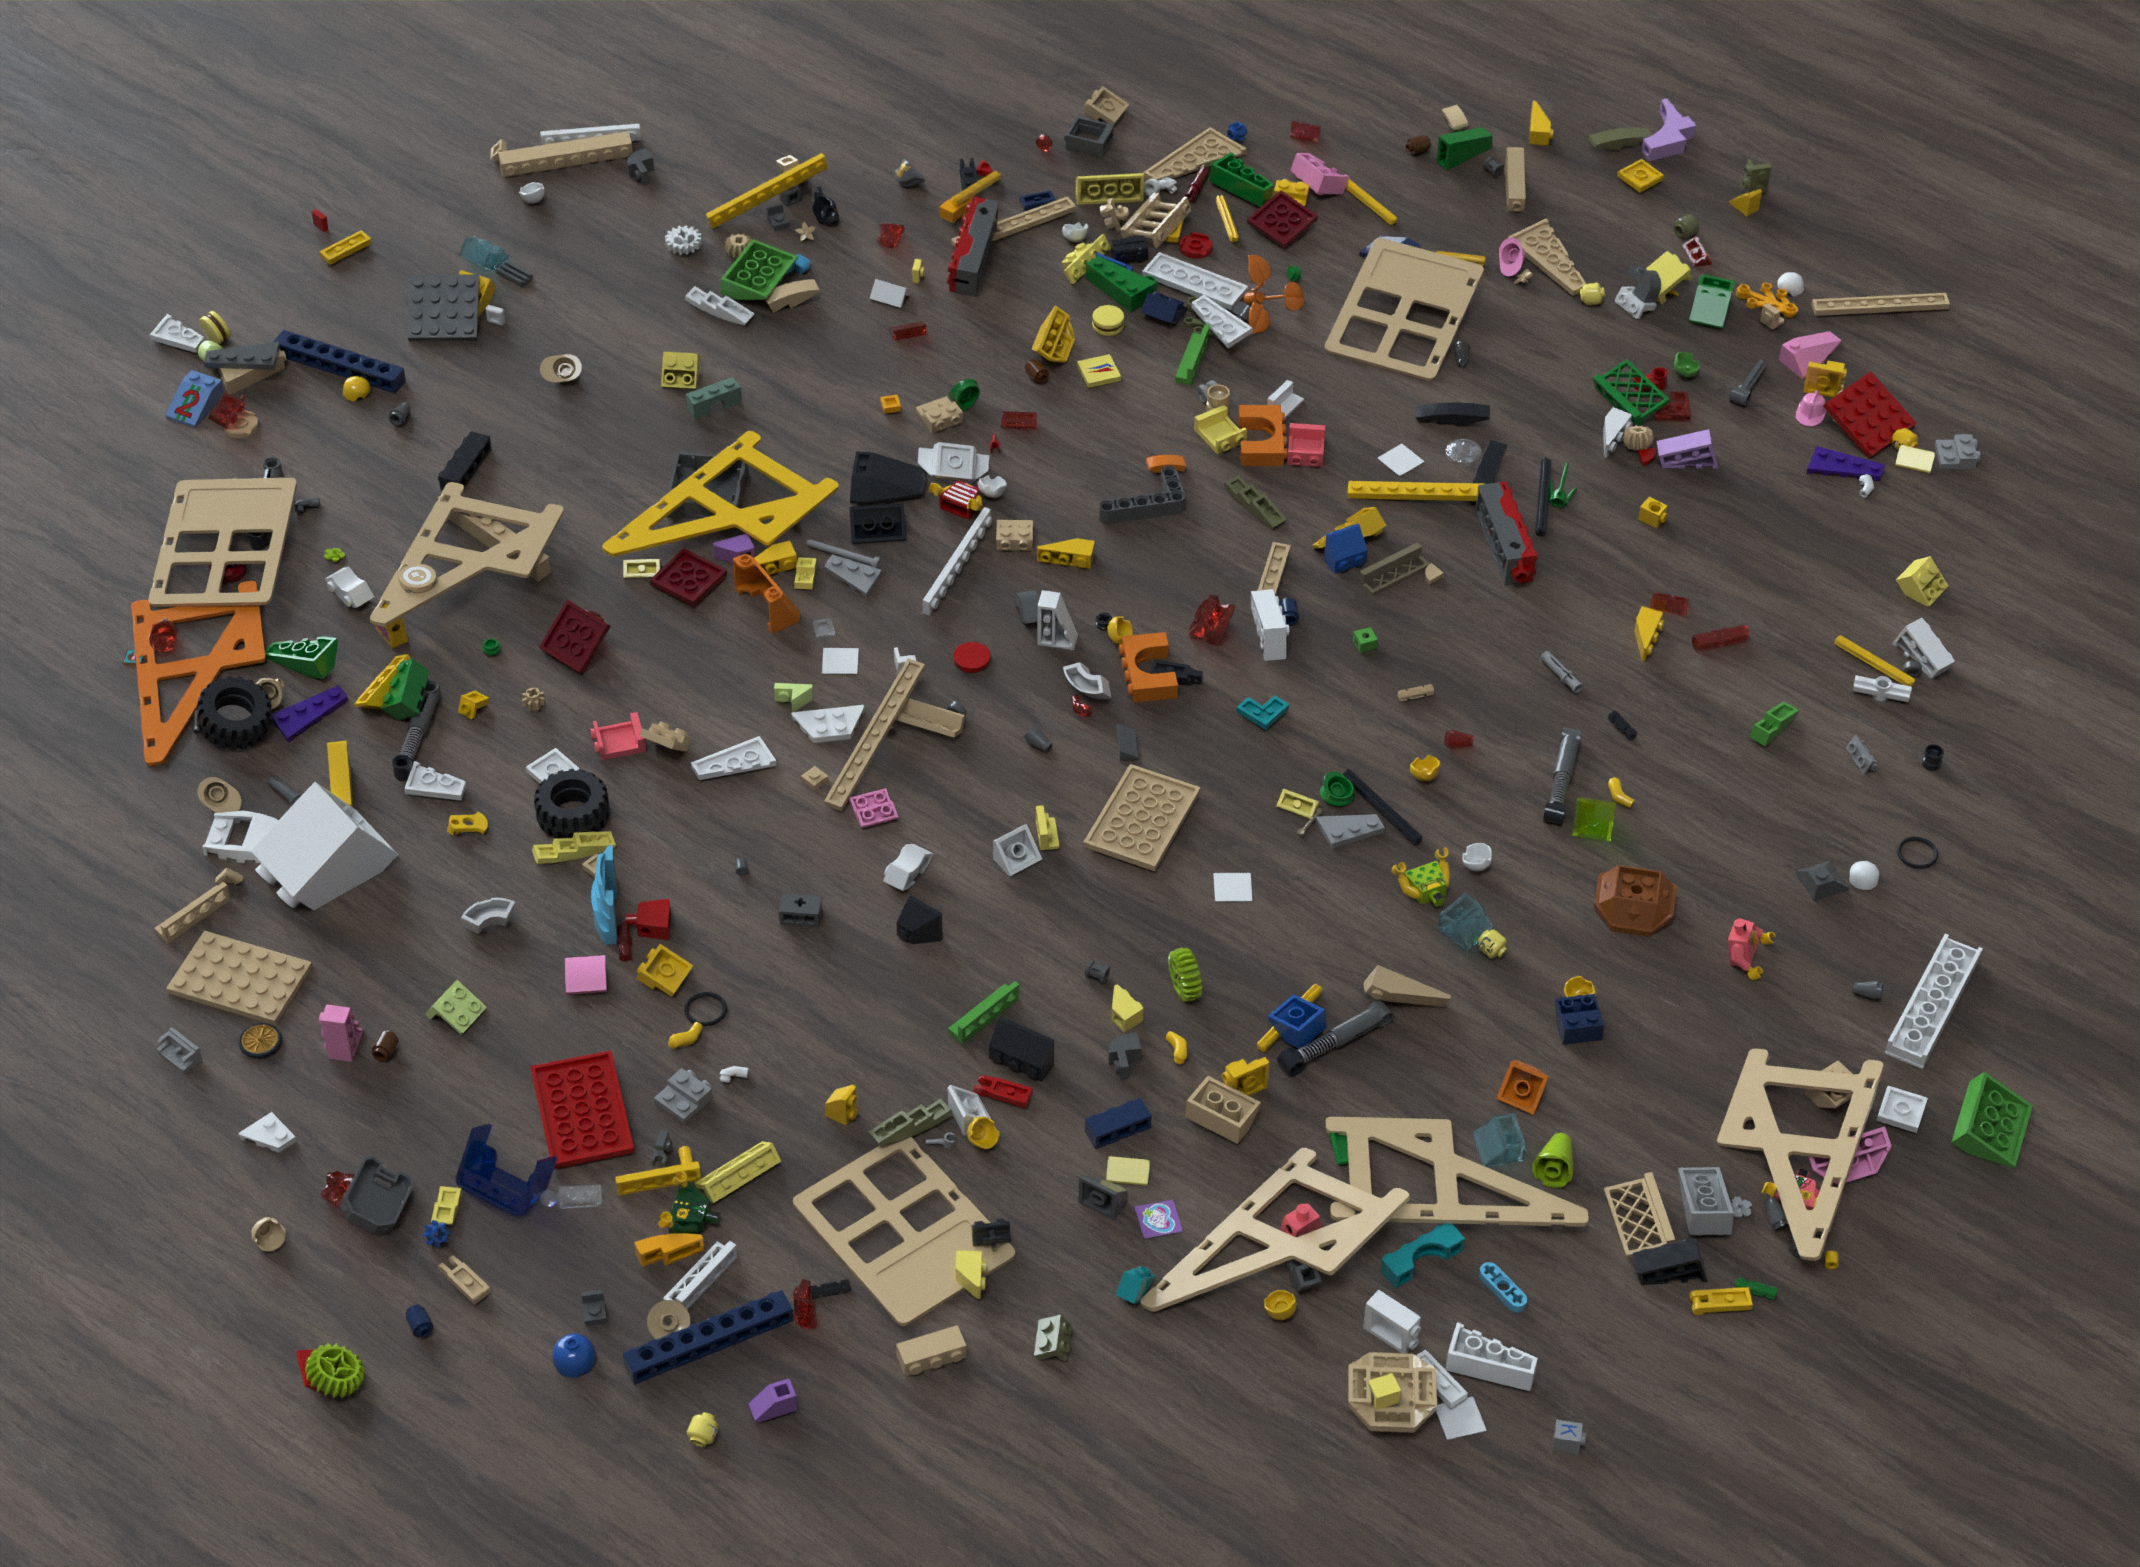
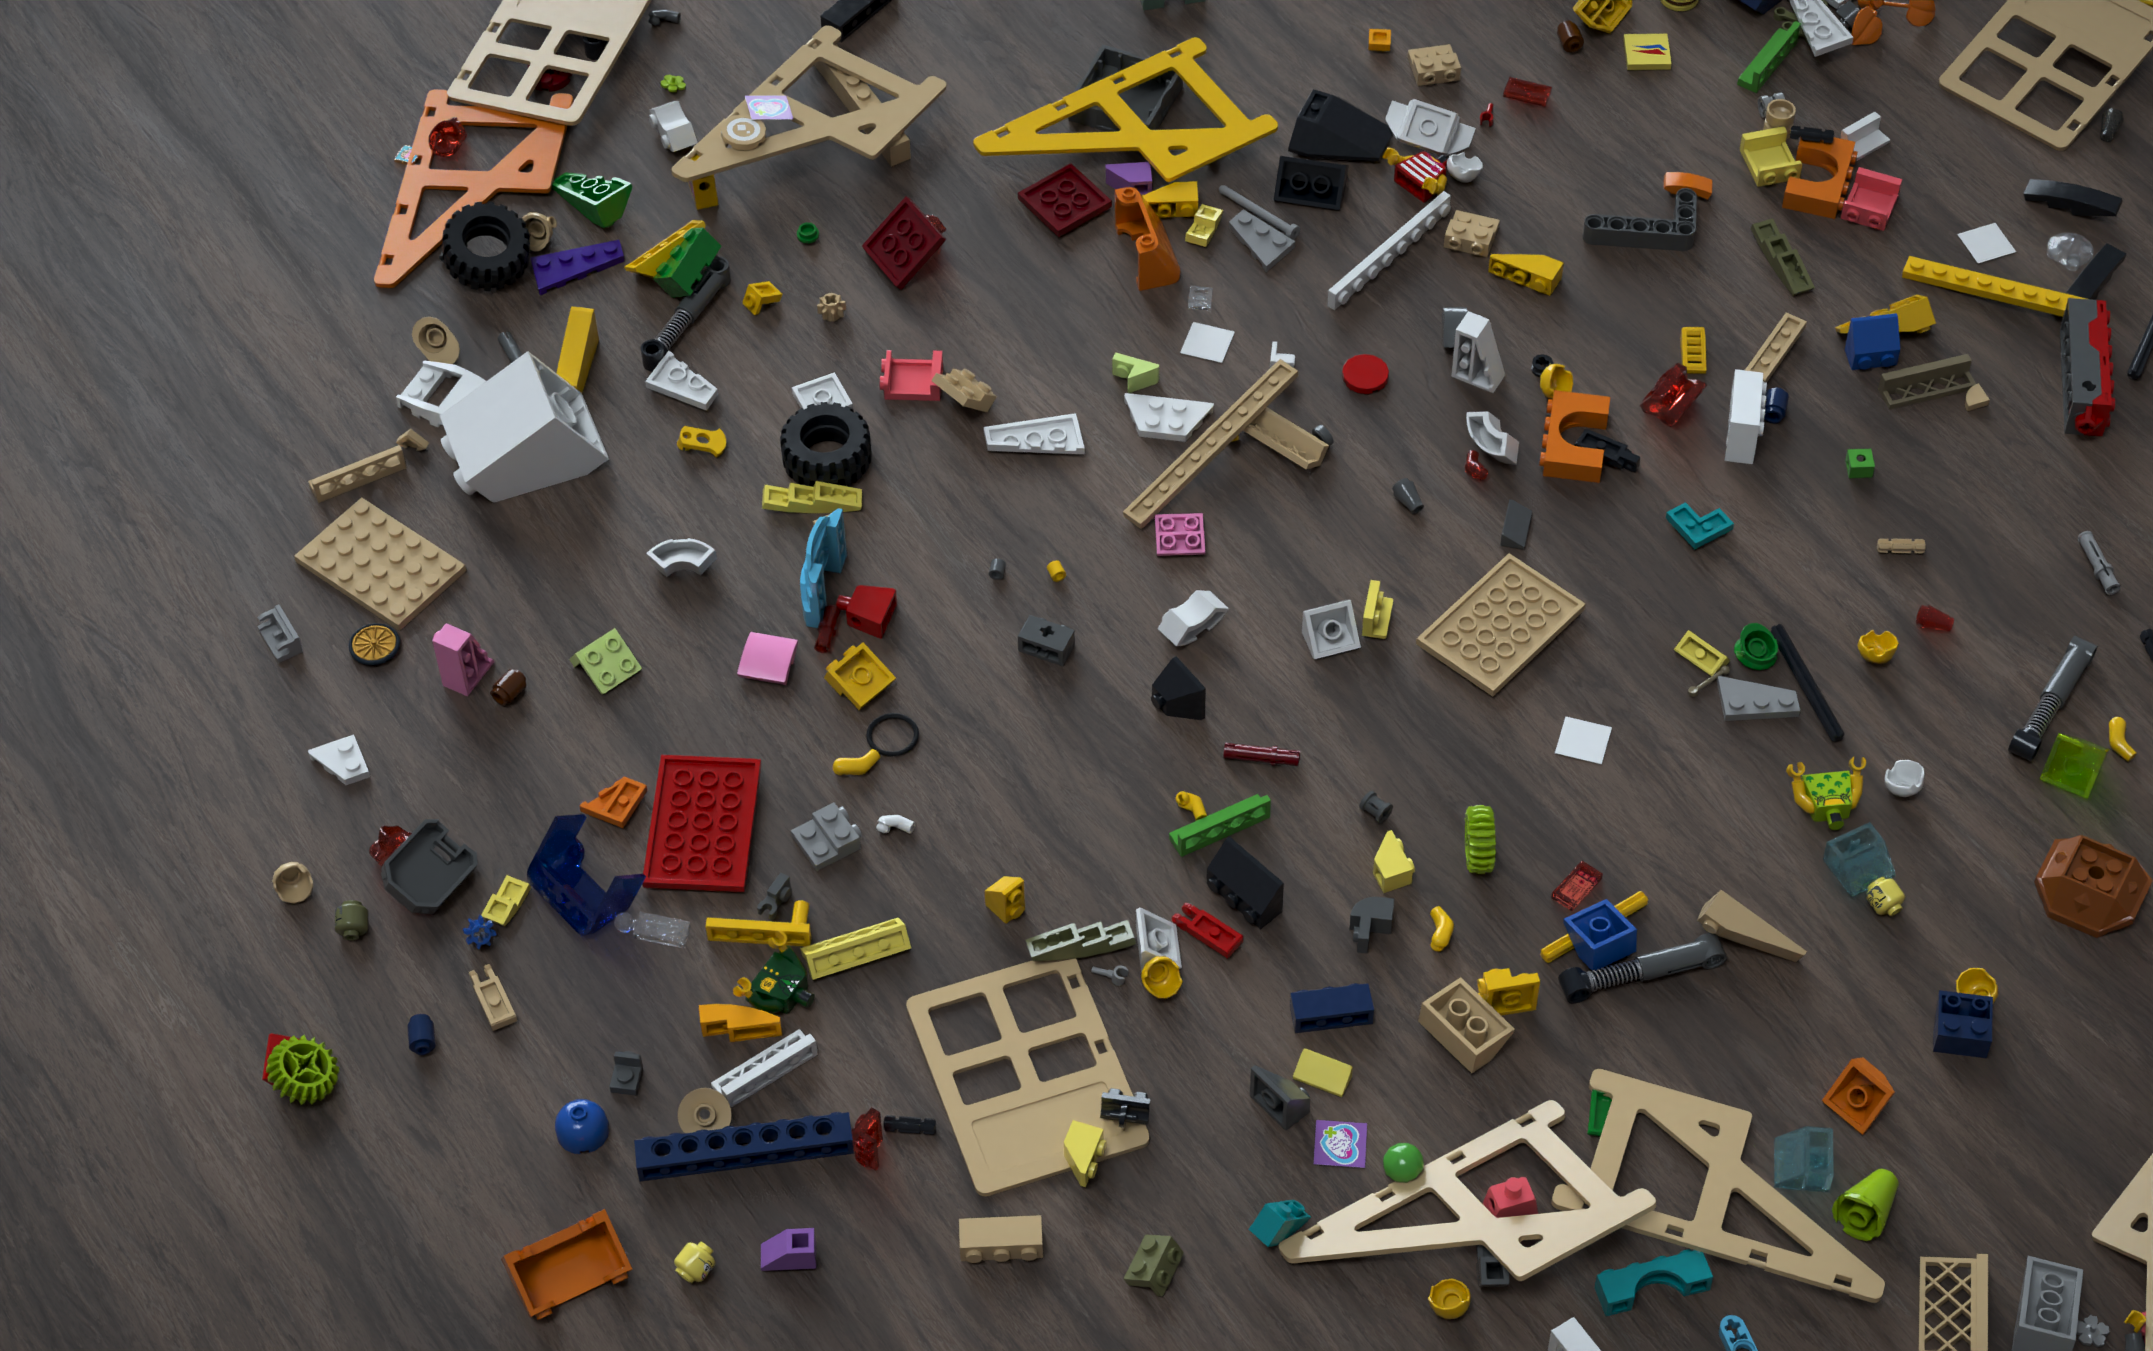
camera: 20 degrees right, 5 degrees up
(327, 1250) = (351, 920): none -> olive head
(430, 554) = (768, 107): none -> sticker
(506, 1111) = (616, 802): none -> orange wing
(604, 1456) = (567, 1264): none -> orange windscreen
(641, 568) = (1014, 176): light yellow slope -> none
(788, 857) = (1056, 571): none -> yellow piece
(814, 778) = (1123, 480): tan plate -> none
(957, 1002) = (1192, 803): none -> yellow arm
(965, 393) = (1471, 46): green piece -> none
(1004, 953) = (1262, 754): none -> dark red pin
(1211, 1218) = (1403, 1162): none -> bright green hair
(1212, 574) = (1693, 336): none -> yellow slope
(1246, 406) = (1812, 134): none -> black axle
(1266, 992) = (1576, 885): none -> clear red tile

